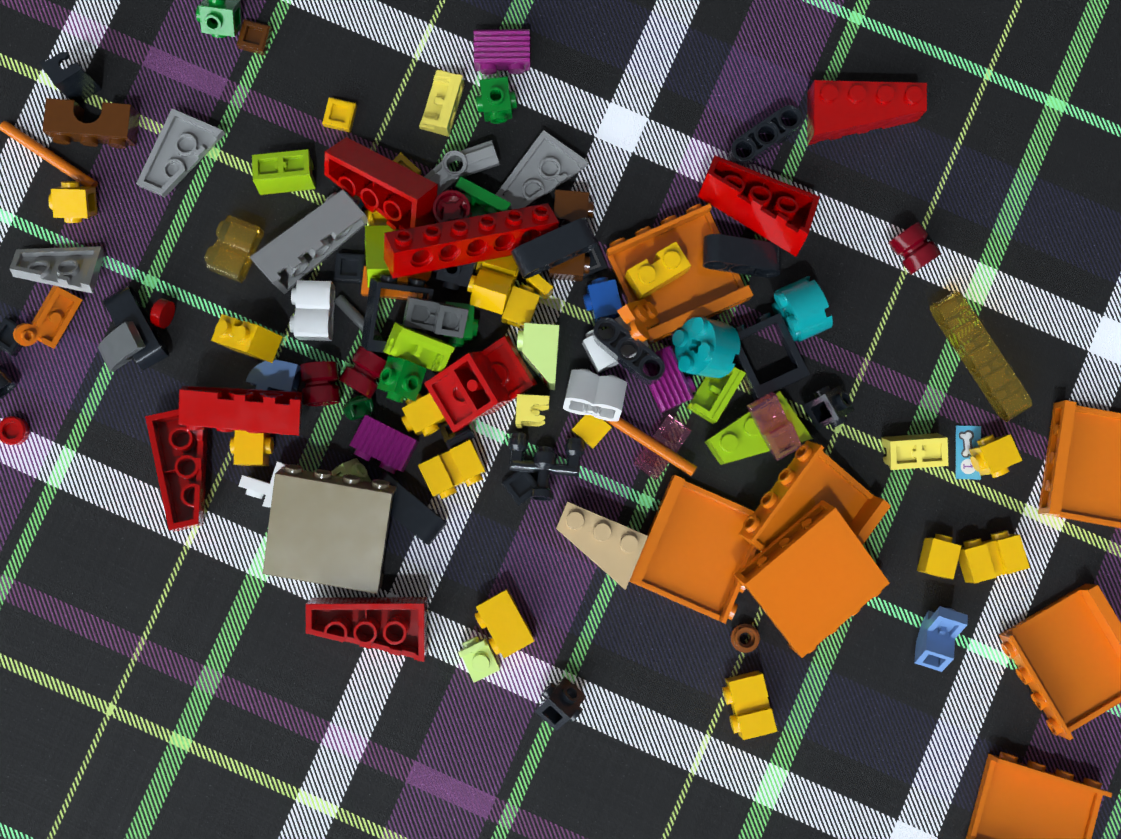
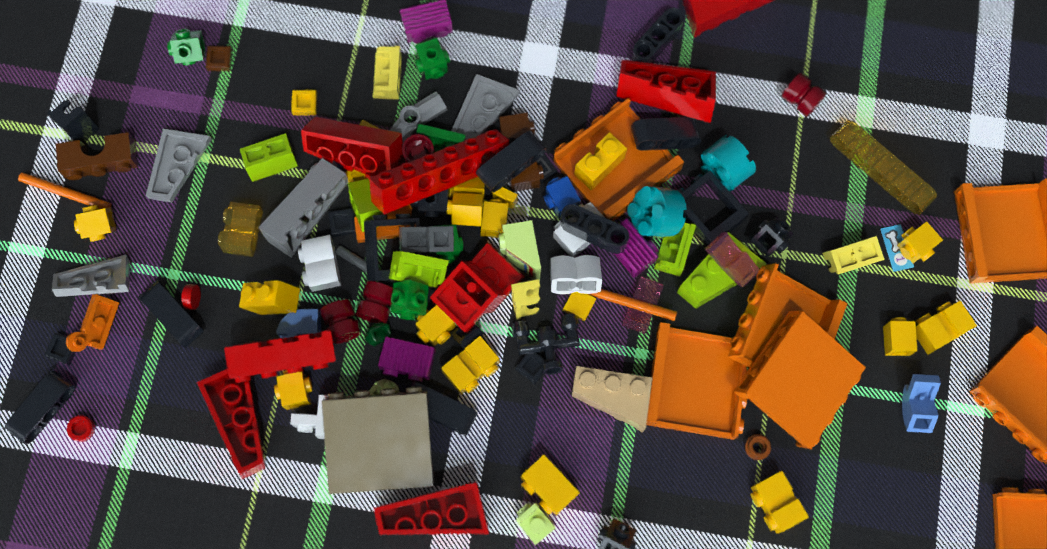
camera: 10 degrees left, 10 degrees down
(120, 345) = (160, 331): dark grey slope -> none
(642, 317) = (598, 198): orange hinge -> none

